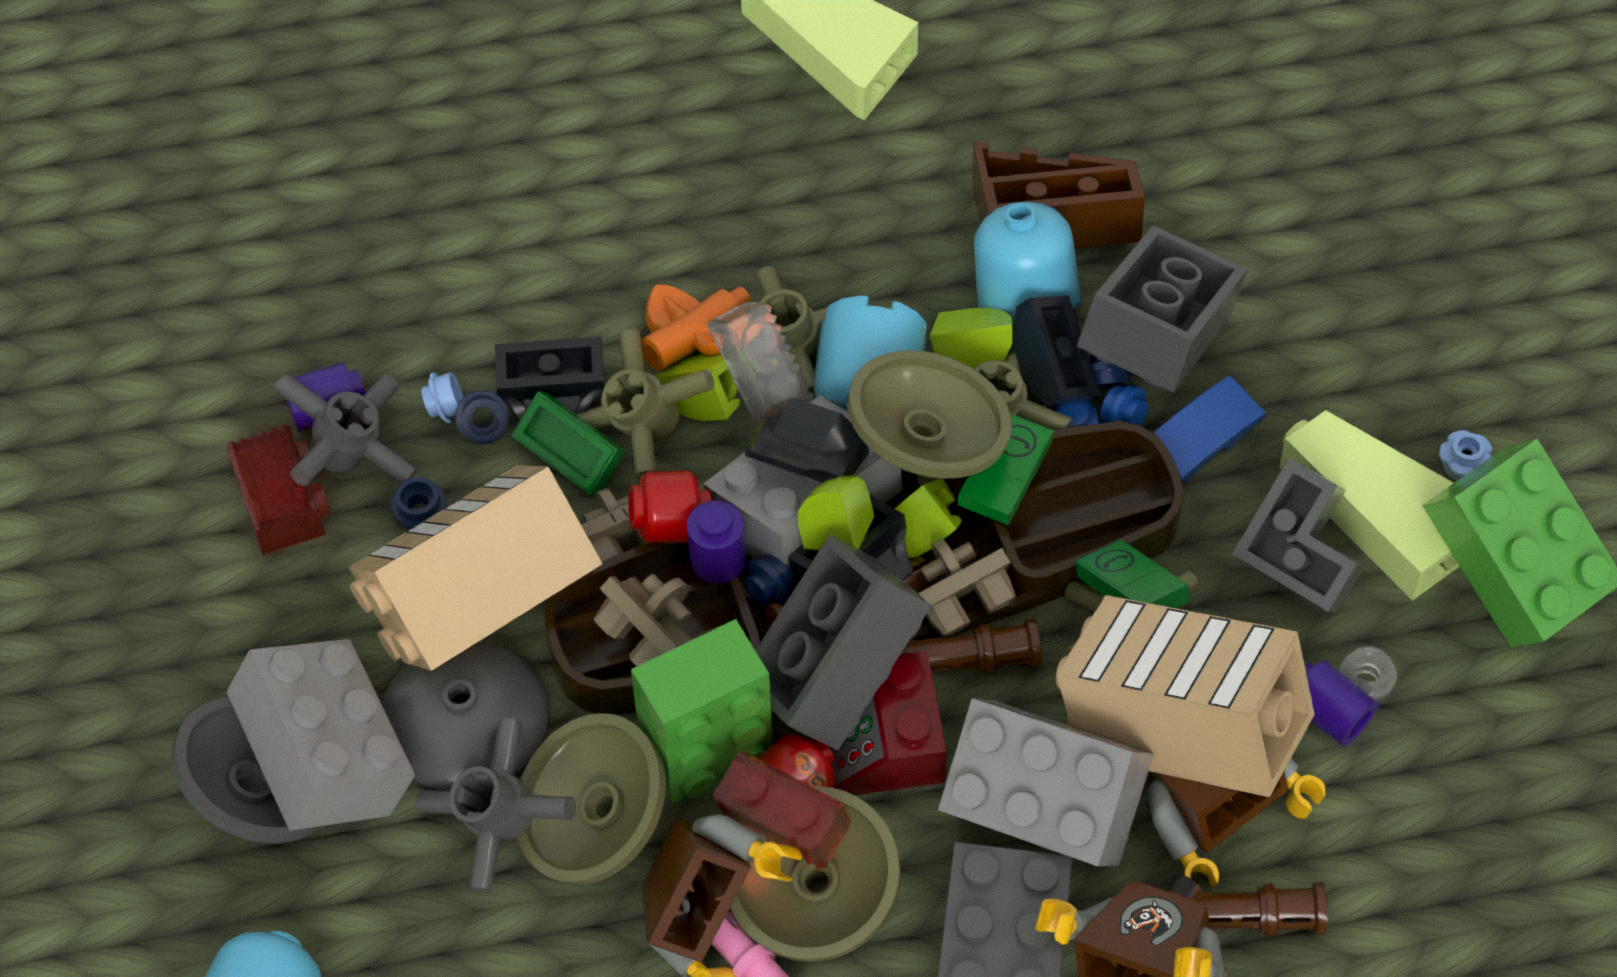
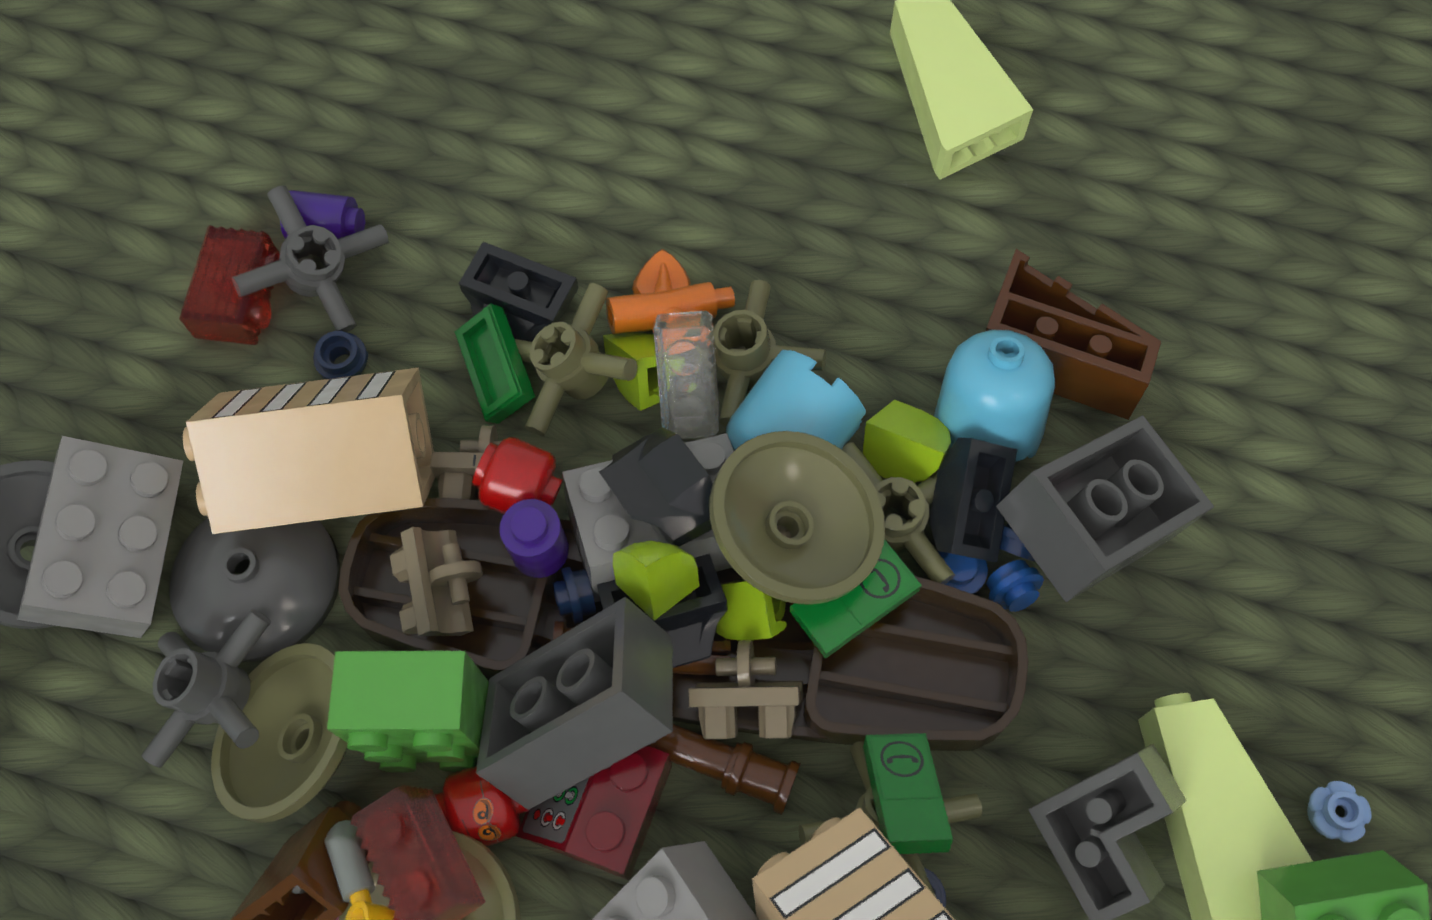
camera: 30 degrees right, 10 degrees up
(442, 395) = (421, 267): light blue plate -> none
(482, 433) = (429, 311): dark blue plate -> none
(1208, 425) = (1086, 646): blue slope -> none

